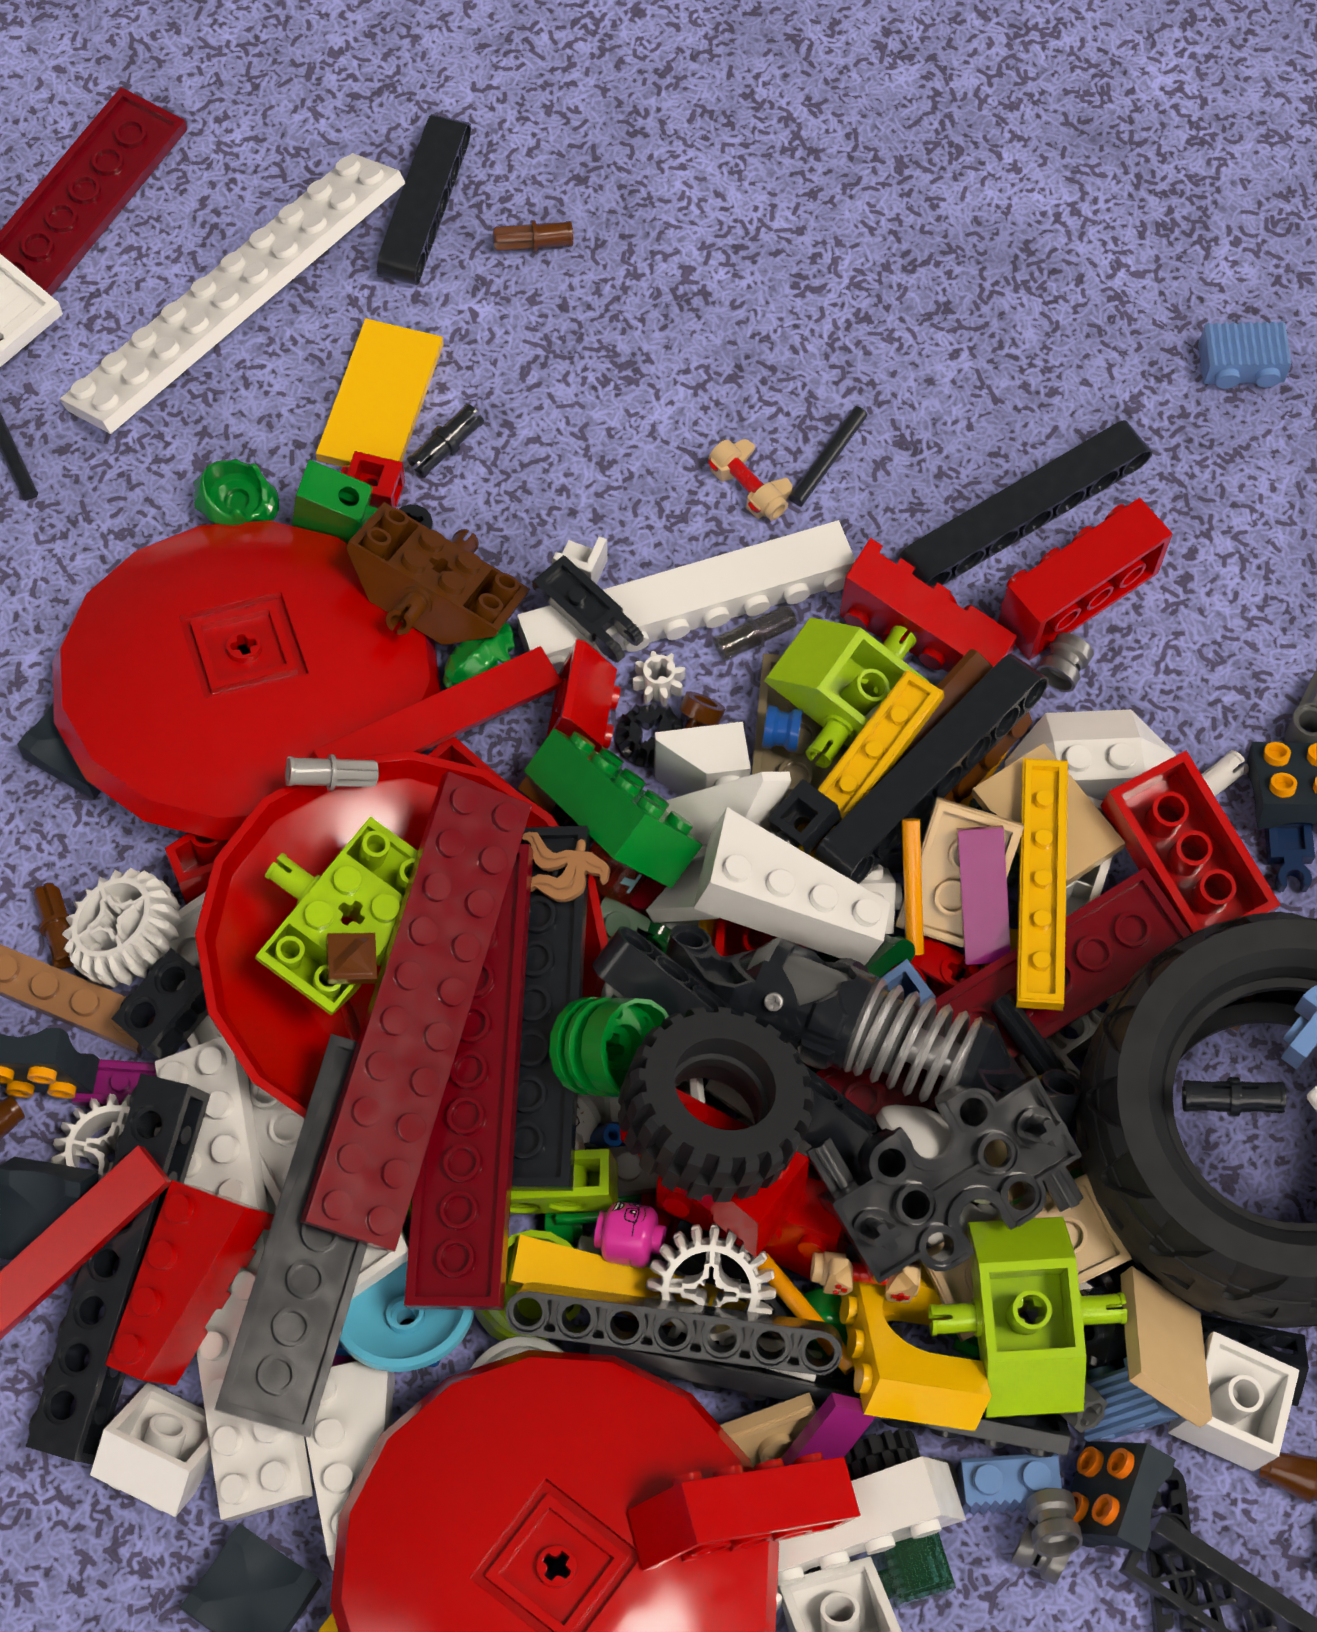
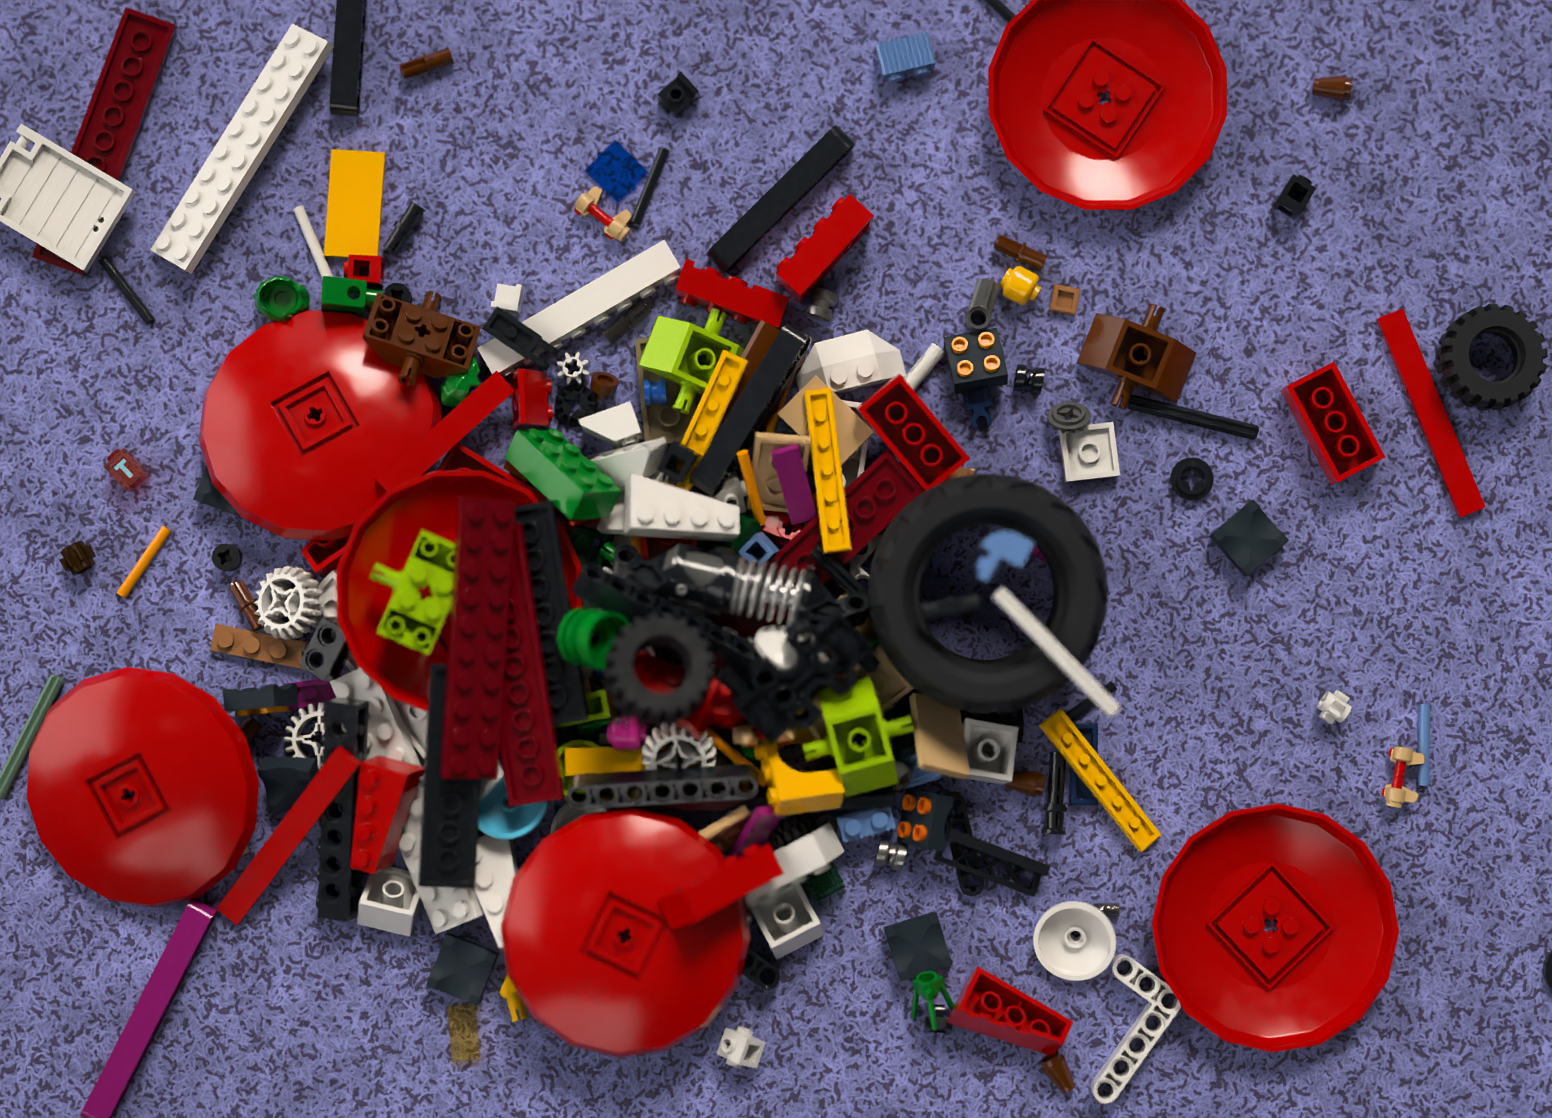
camera: 10 degrees left, 20 degrees up
(49, 856) = (232, 559): none -> black wheel
(301, 424) = (312, 241): none -> white bar
(331, 772) = (391, 501): light grey axle -> none
(351, 958) = (432, 623): reddish brown tile -> none
(573, 879) = (549, 537): medium nougat piece -> none
(781, 428) = (616, 171): none -> clear blue piece
(896, 342) = (688, 92): none -> black brick
(1054, 1529) = (892, 843): flat silver wheel -> none

